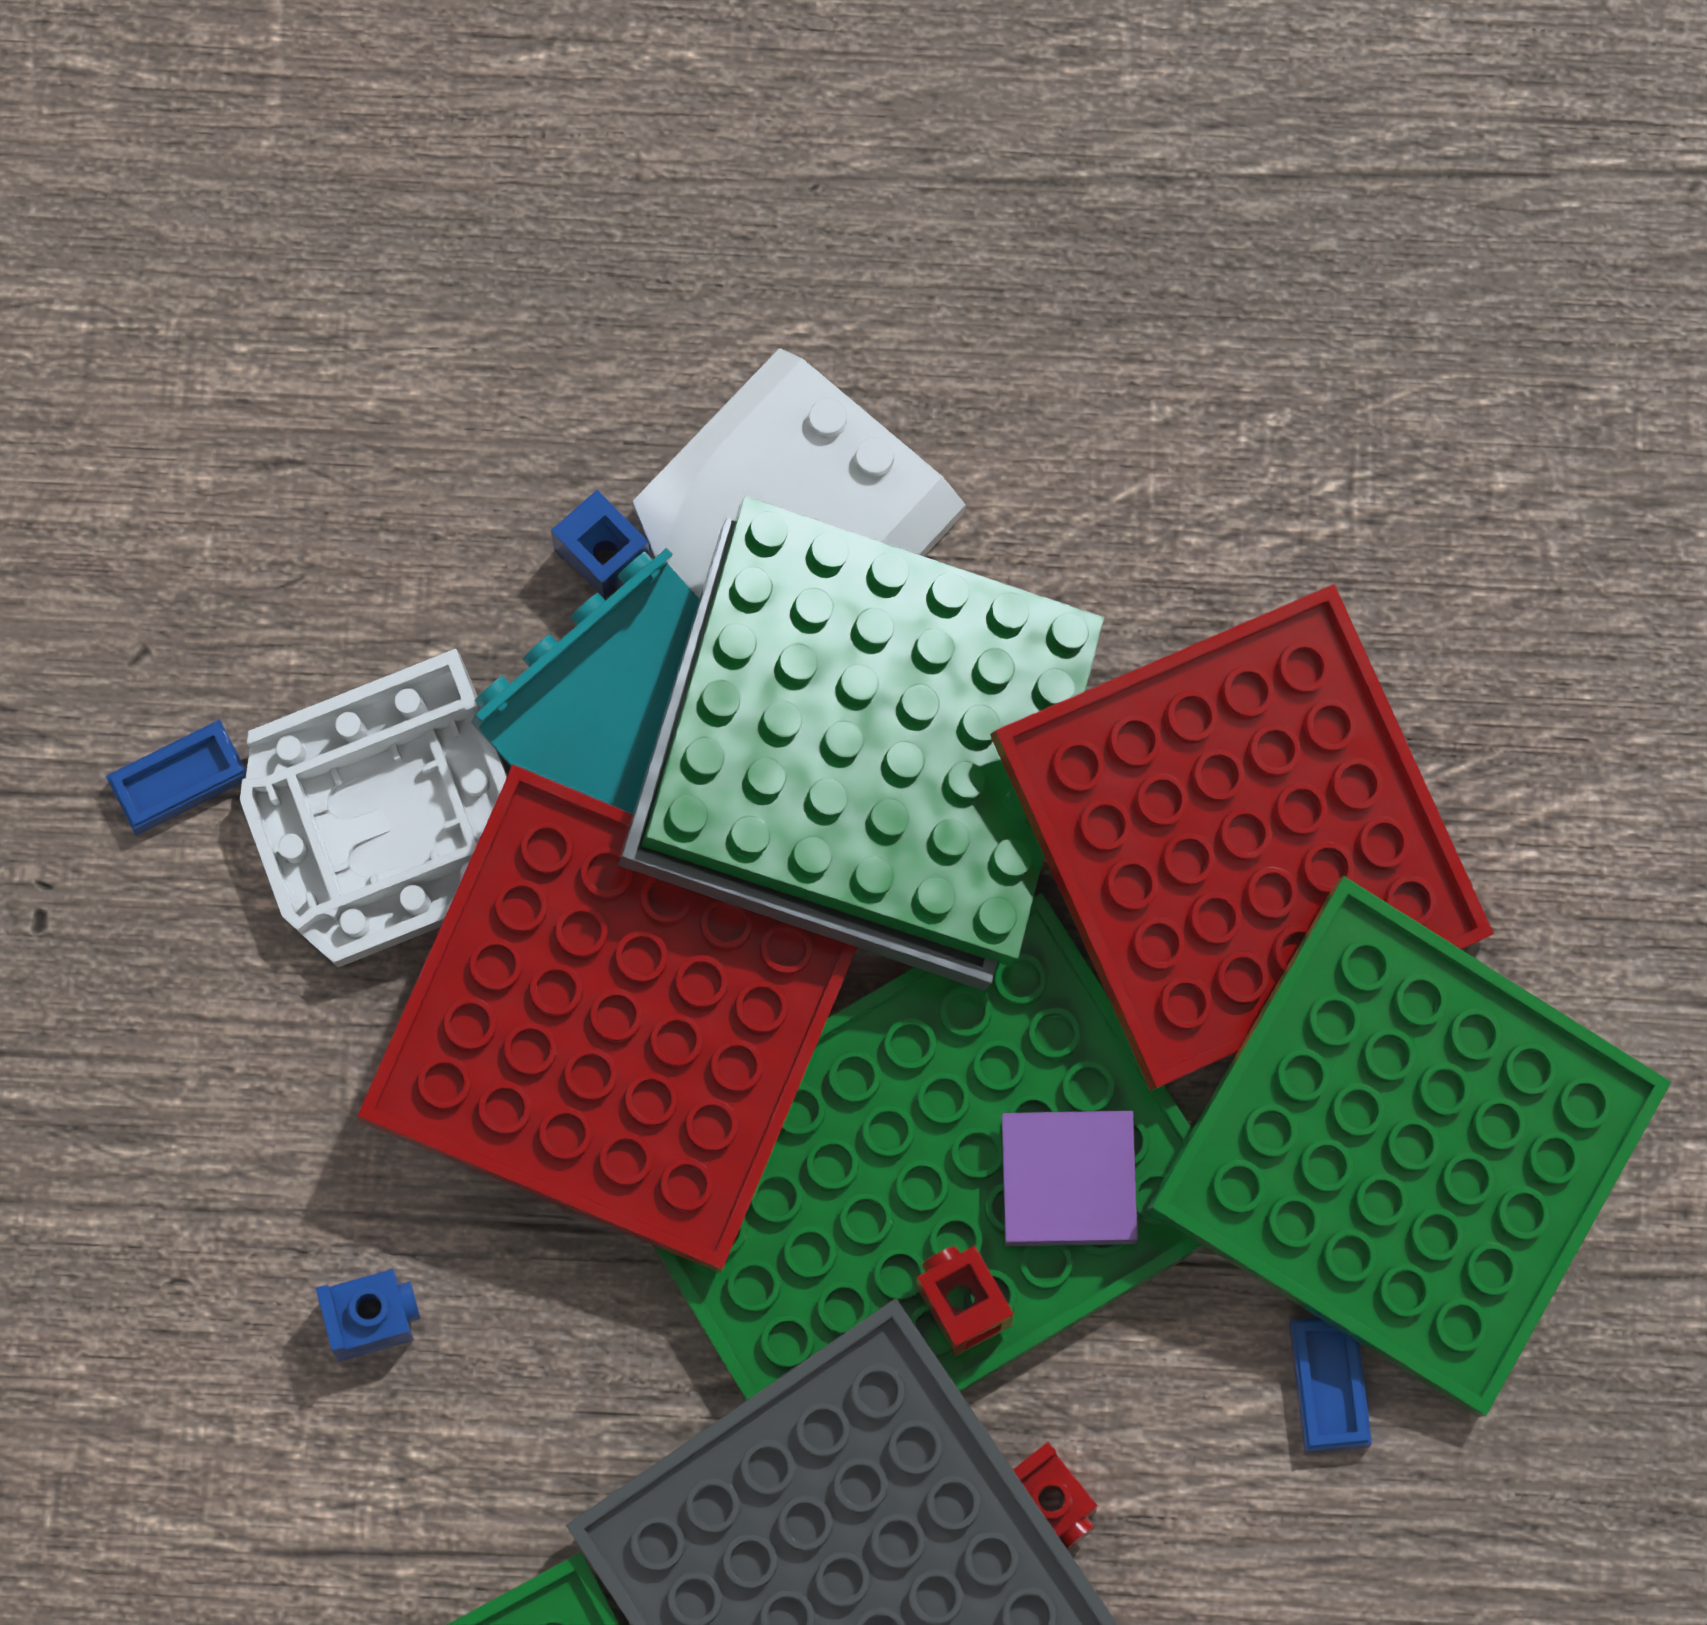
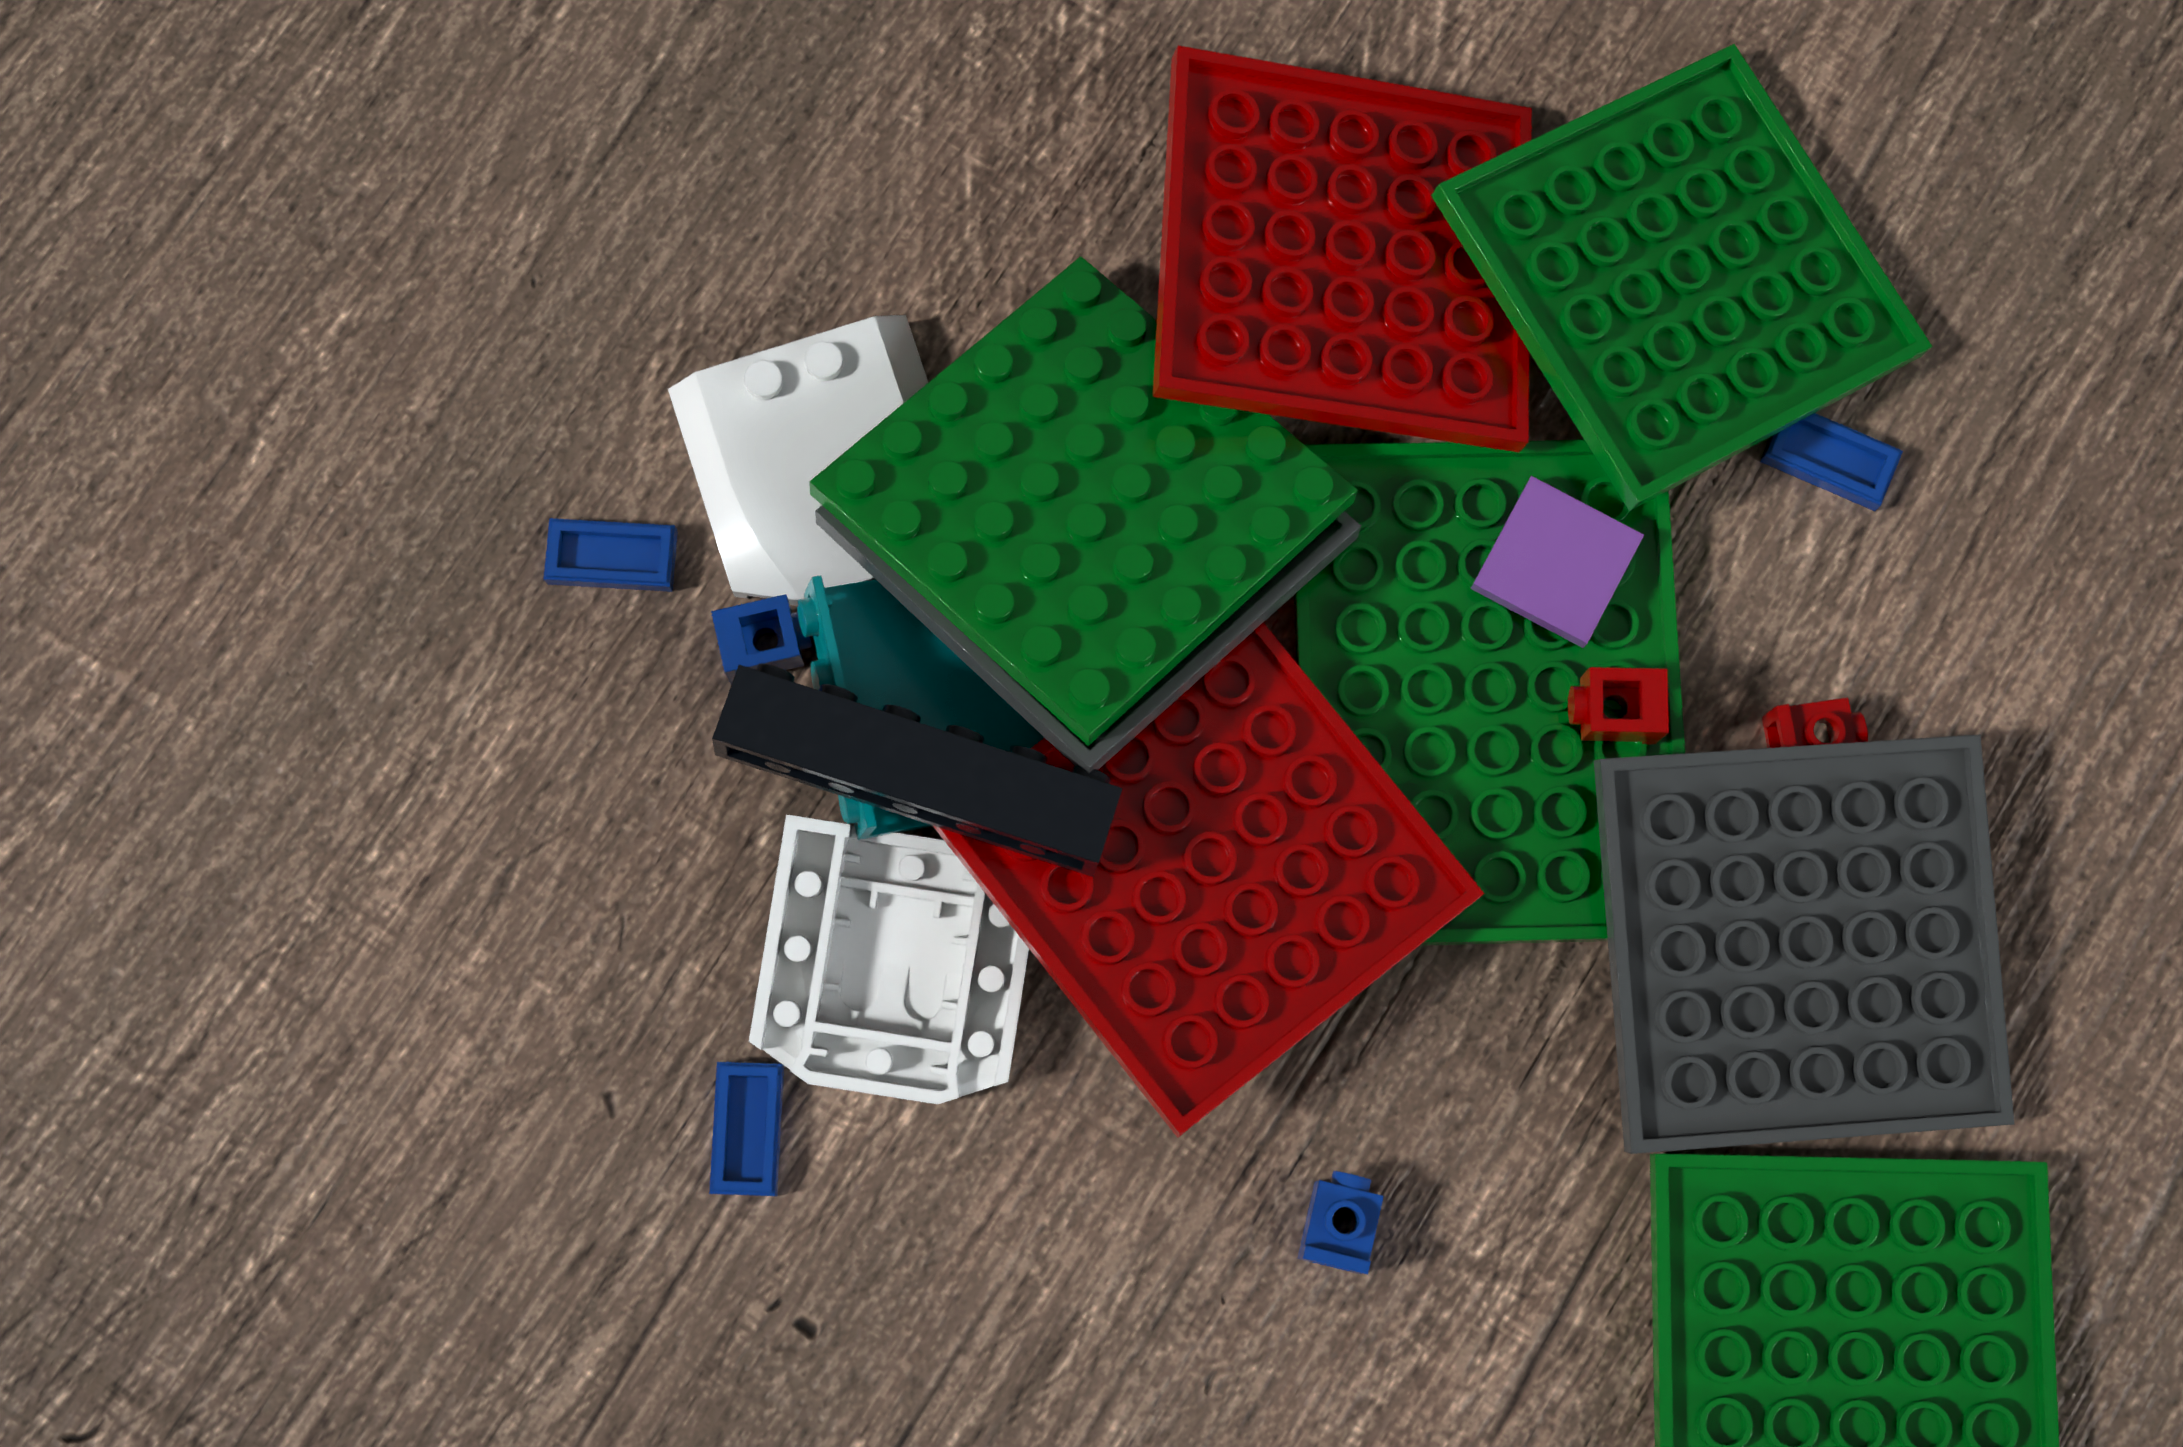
camera: 65 degrees left, 5 degrees up
(543, 722) = (916, 768): none -> black brick
(608, 387) = (610, 555): none -> blue tile

